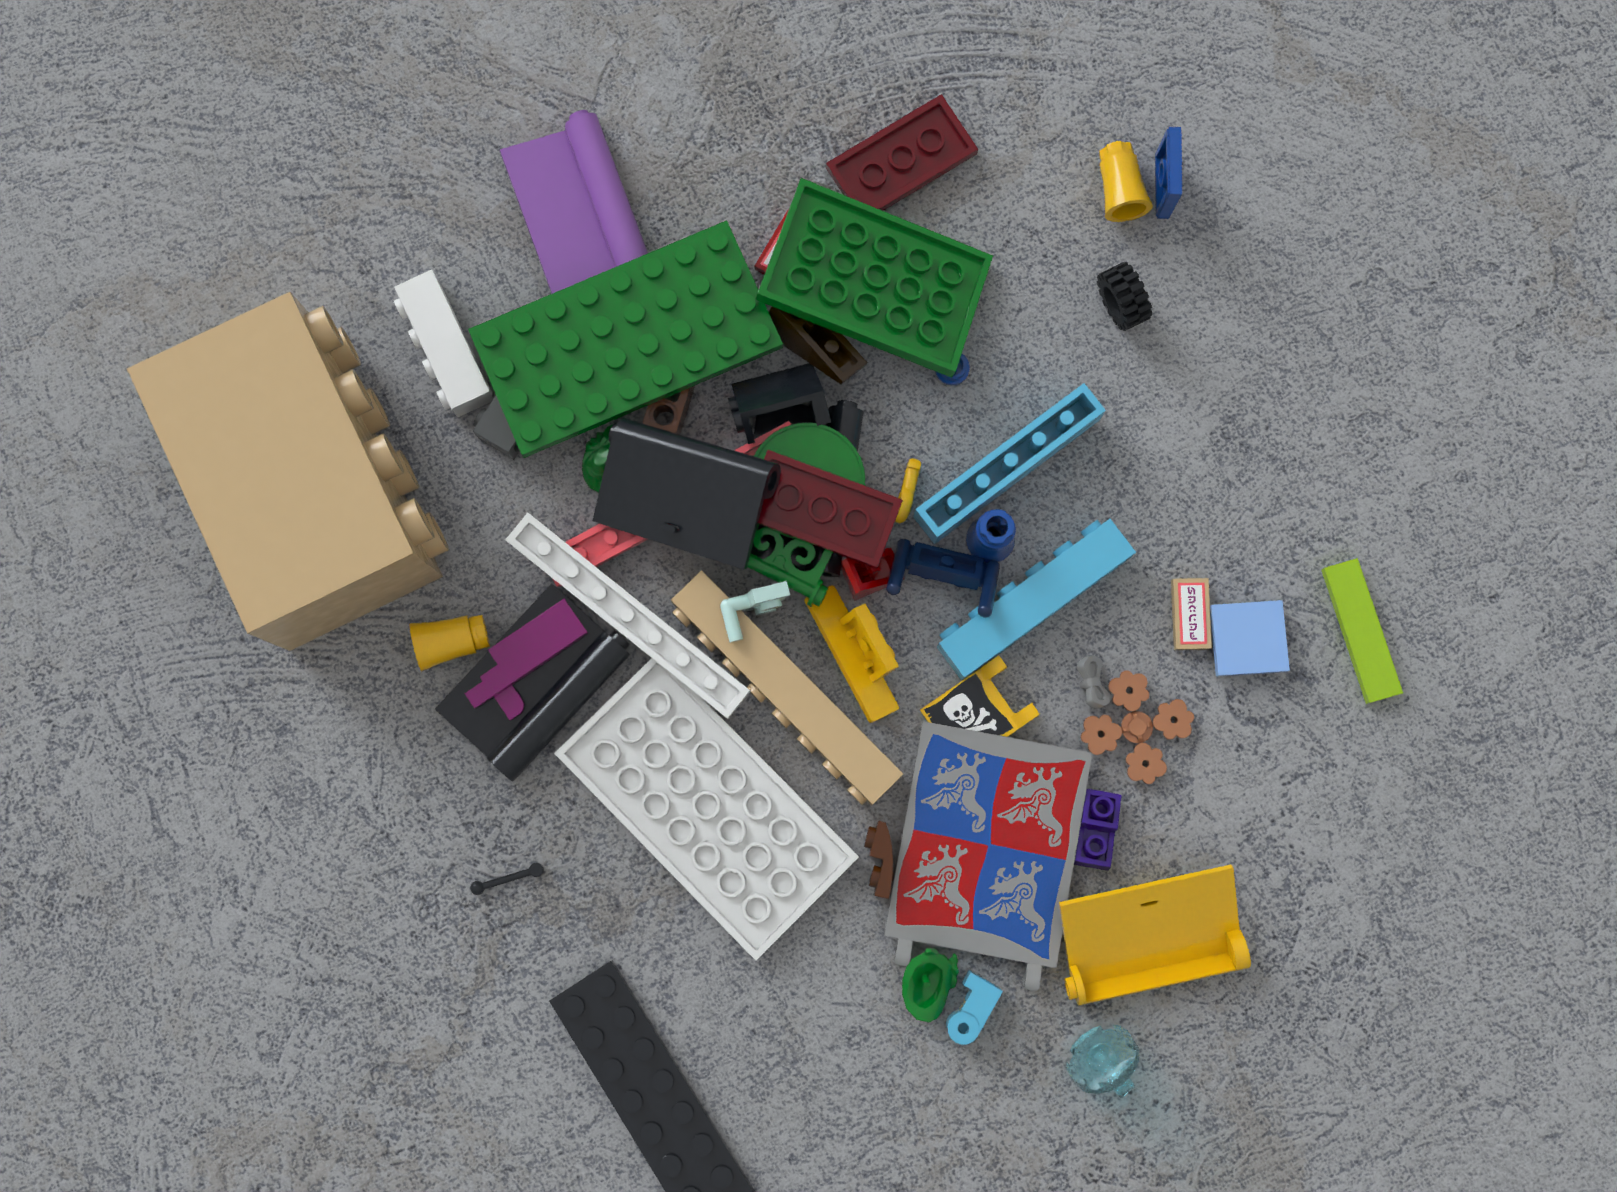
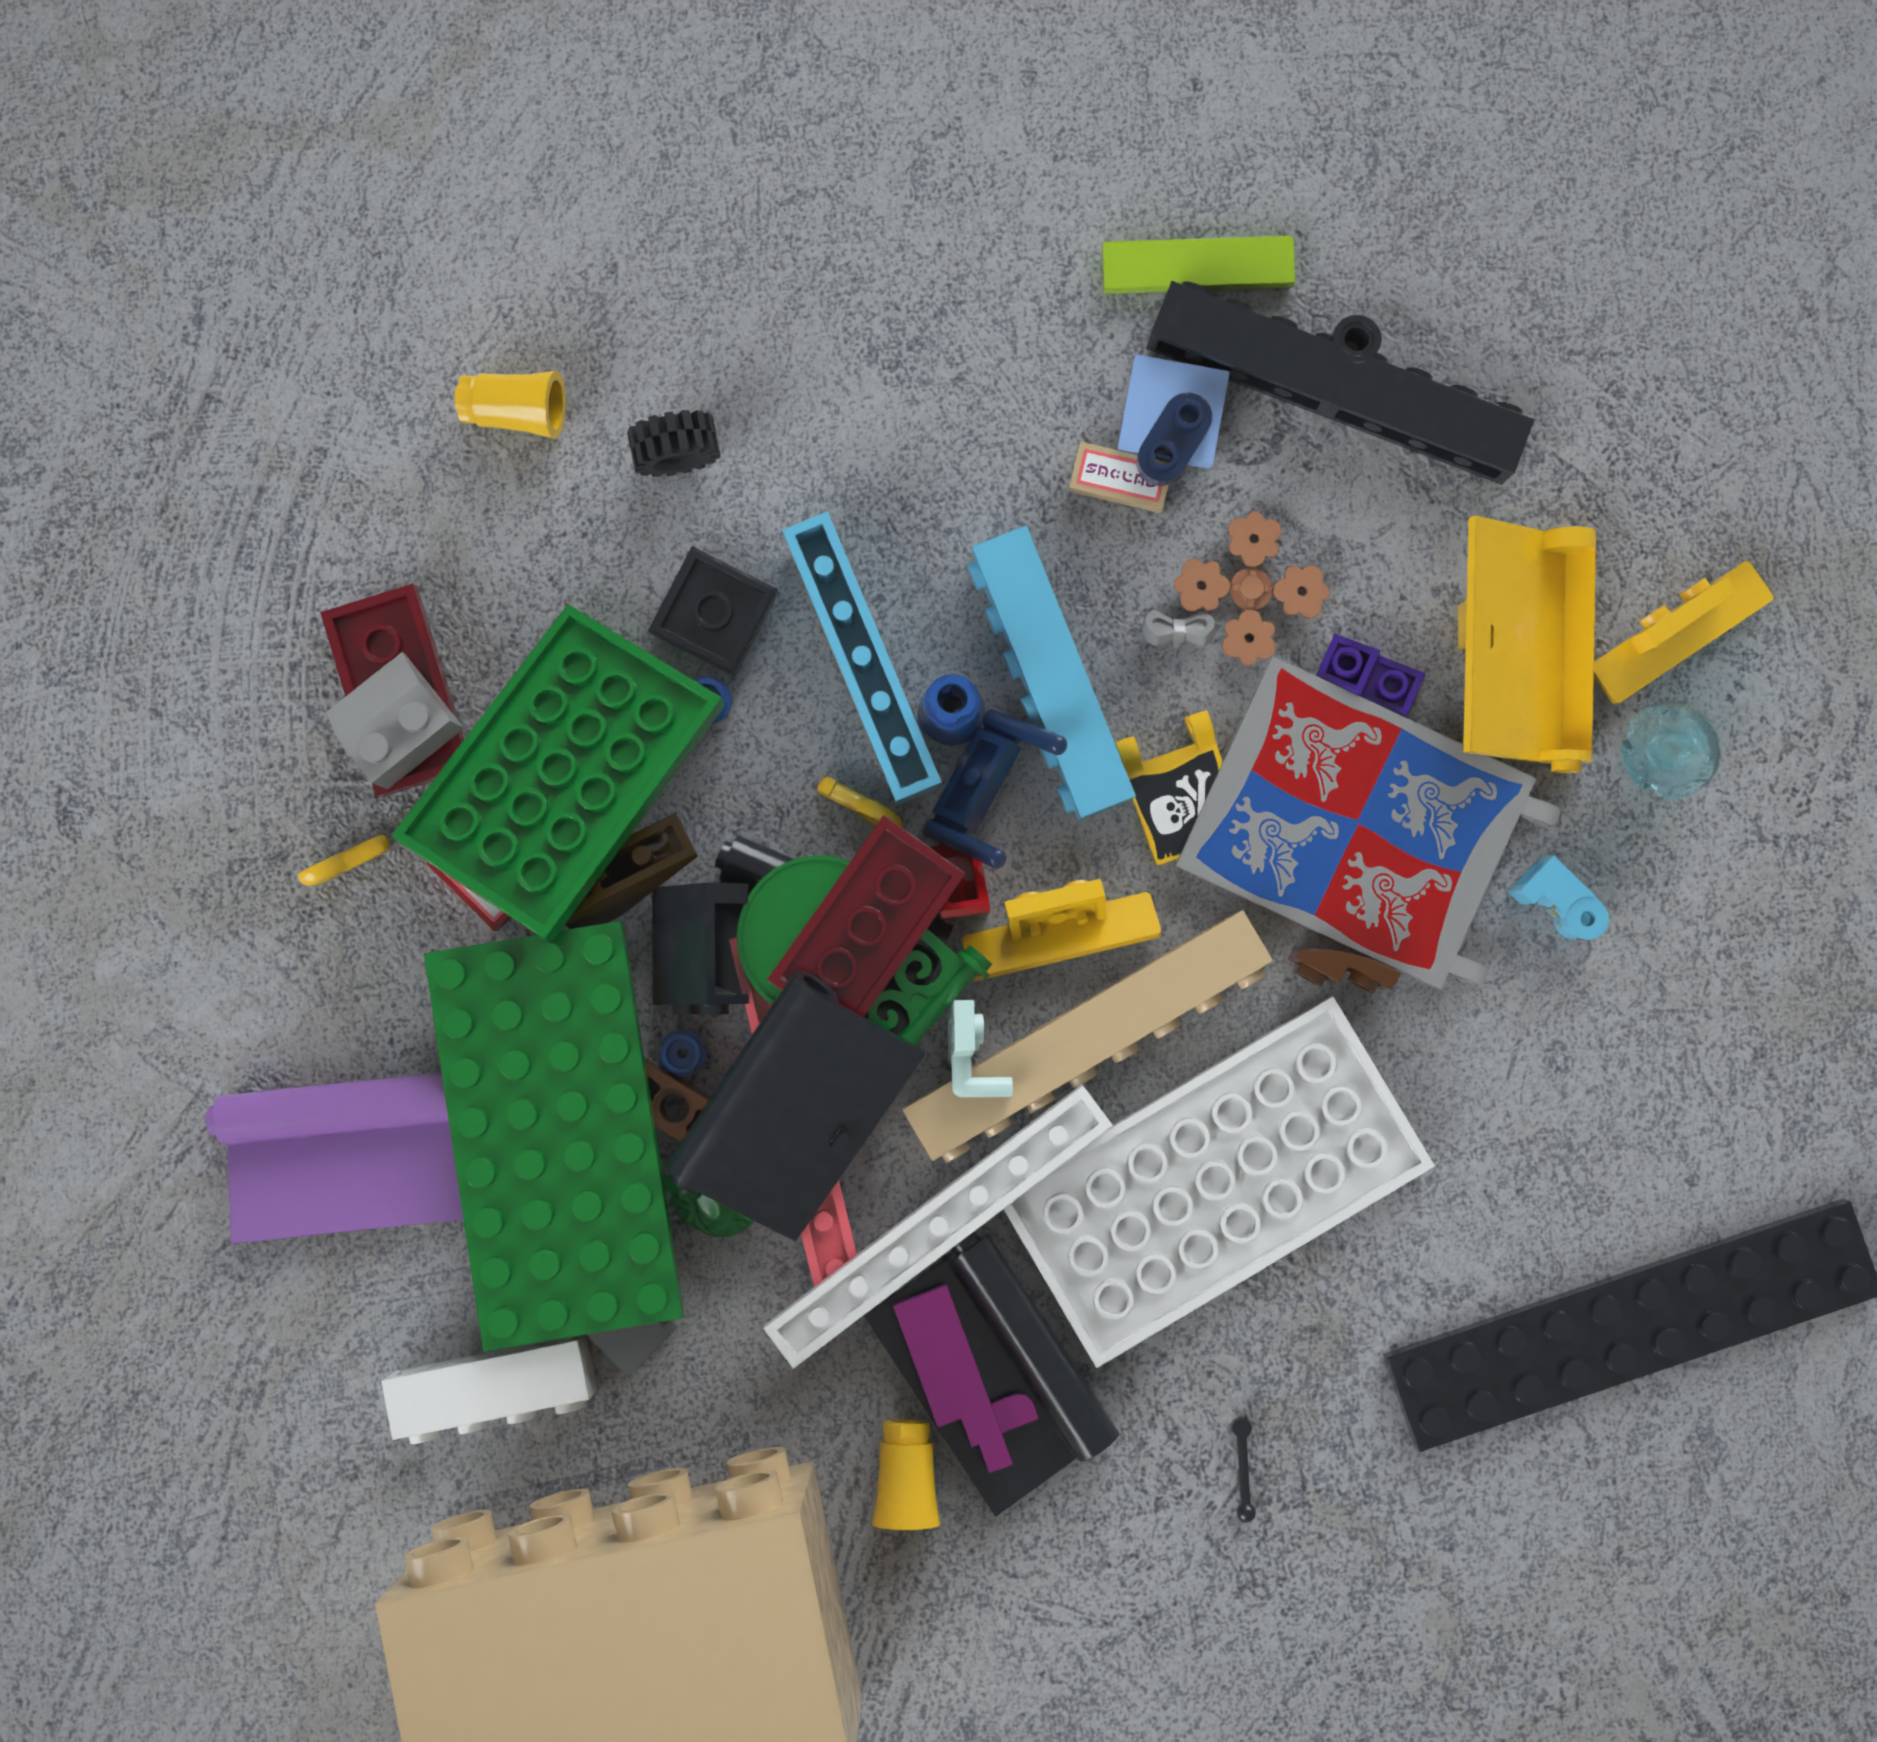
camera: 75 degrees left, 5 degrees up
(699, 405) = (673, 1062): none -> blue plate
(773, 152) = (344, 861): none -> yellow piece
(878, 160) = (392, 722): none -> light grey slope
(928, 983) = (1517, 949): green hat -> none
(1015, 355) = (713, 611): none -> black plate
(1168, 173) = (518, 336): blue tile -> none
(1192, 1048) = (1679, 633): none -> yellow bracket
(1229, 642) = (1174, 437): none -> dark blue plate
(1304, 753) = (1342, 383): none -> black hinge

